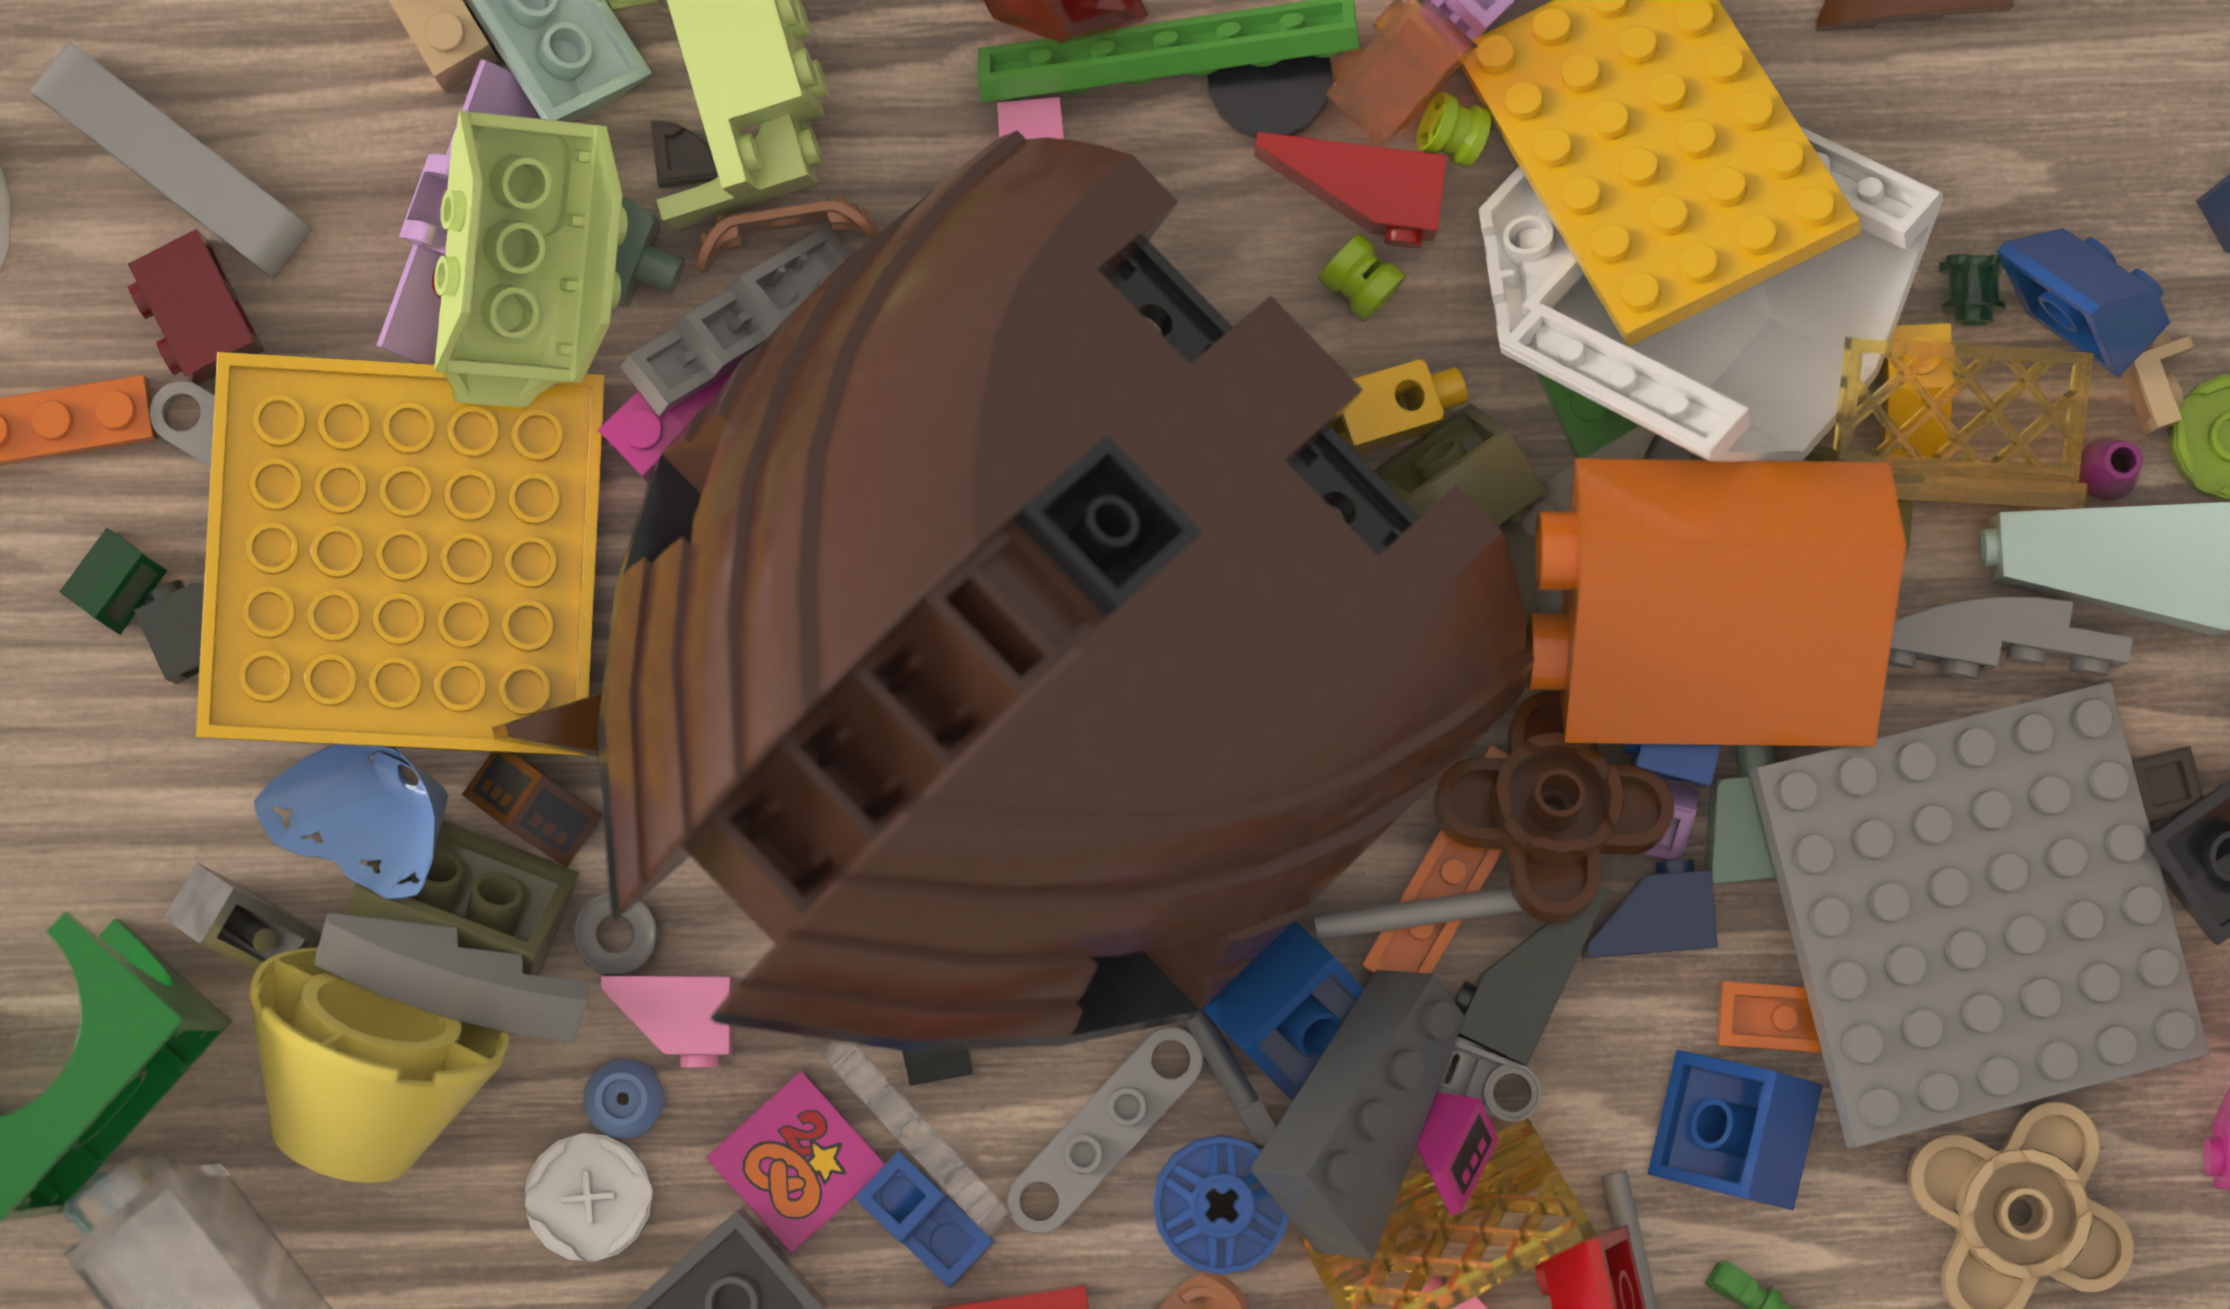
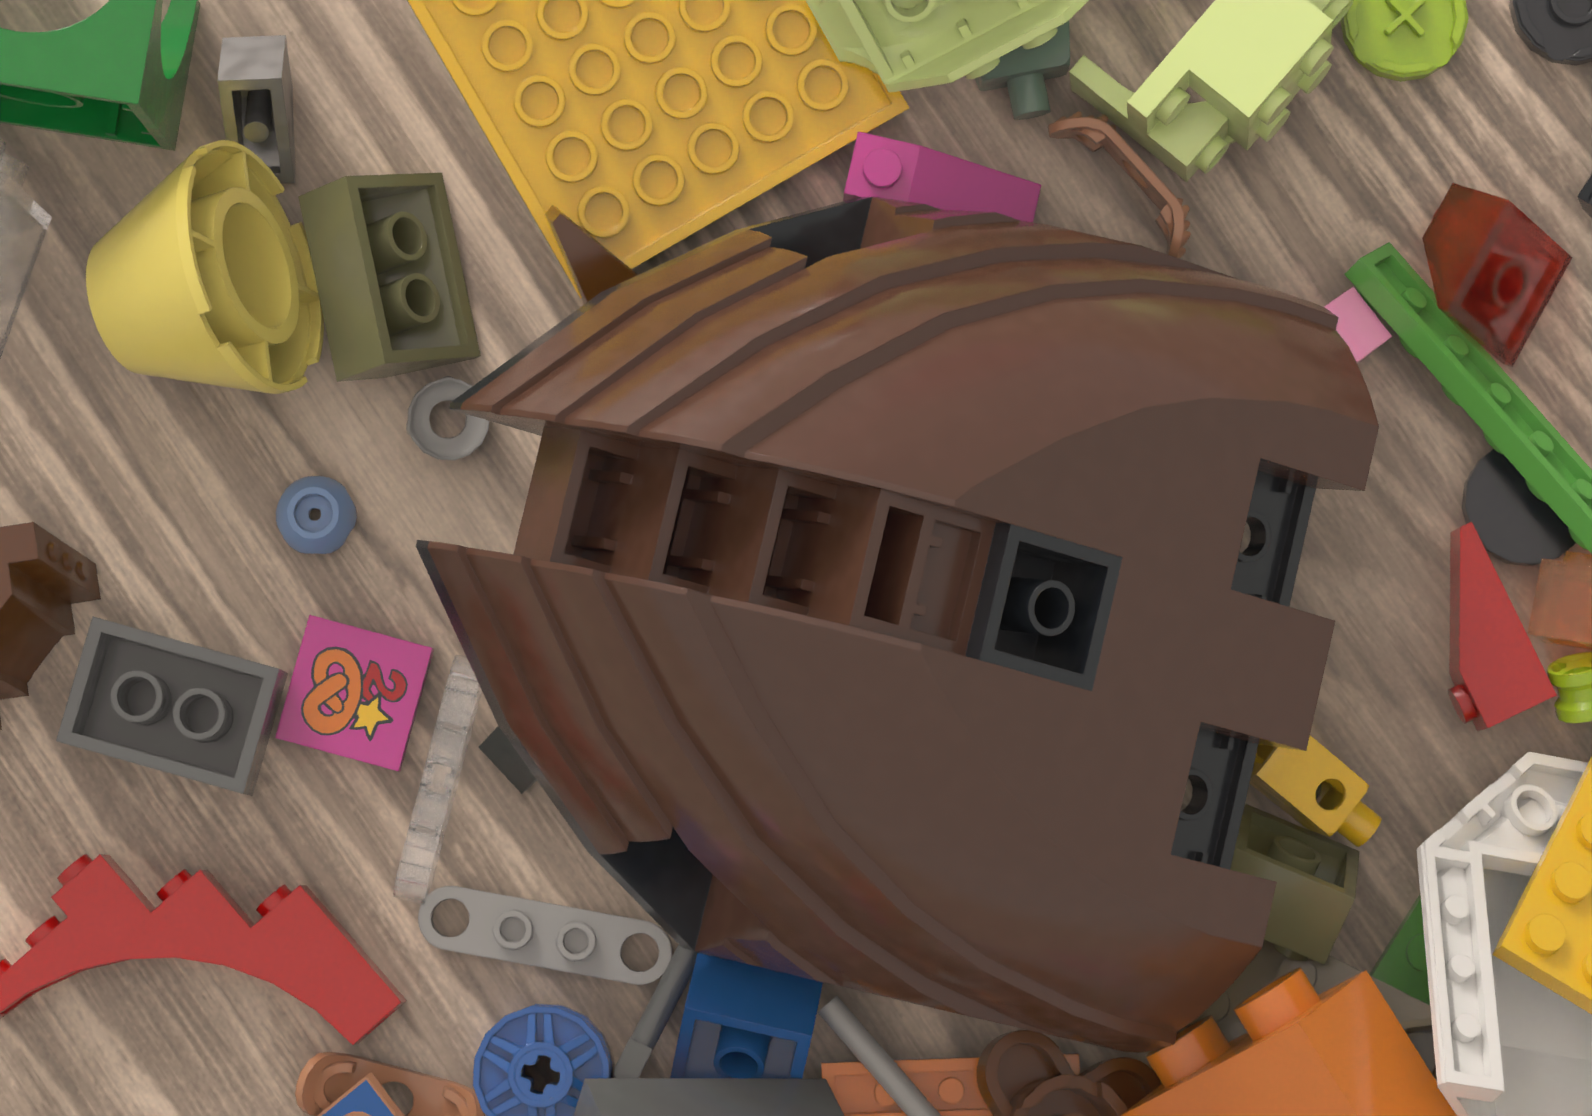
camera: 55 degrees right, 0 degrees up
(361, 815) = (412, 145): medium blue piece -> none
(430, 972) = (314, 288): light grey slope -> none
(532, 806) = (510, 282): slope -> none
(588, 1197) = (215, 539): white tile -> none
(676, 1013) = (412, 509): bright pink slope -> none
(680, 156) = (1134, 51): dark brown tile -> none
(733, 324) = (1015, 184): light grey slope -> none
(924, 1219) = (373, 830): blue slope -> none
(1361, 277) = (1406, 689): lime wheel -> none

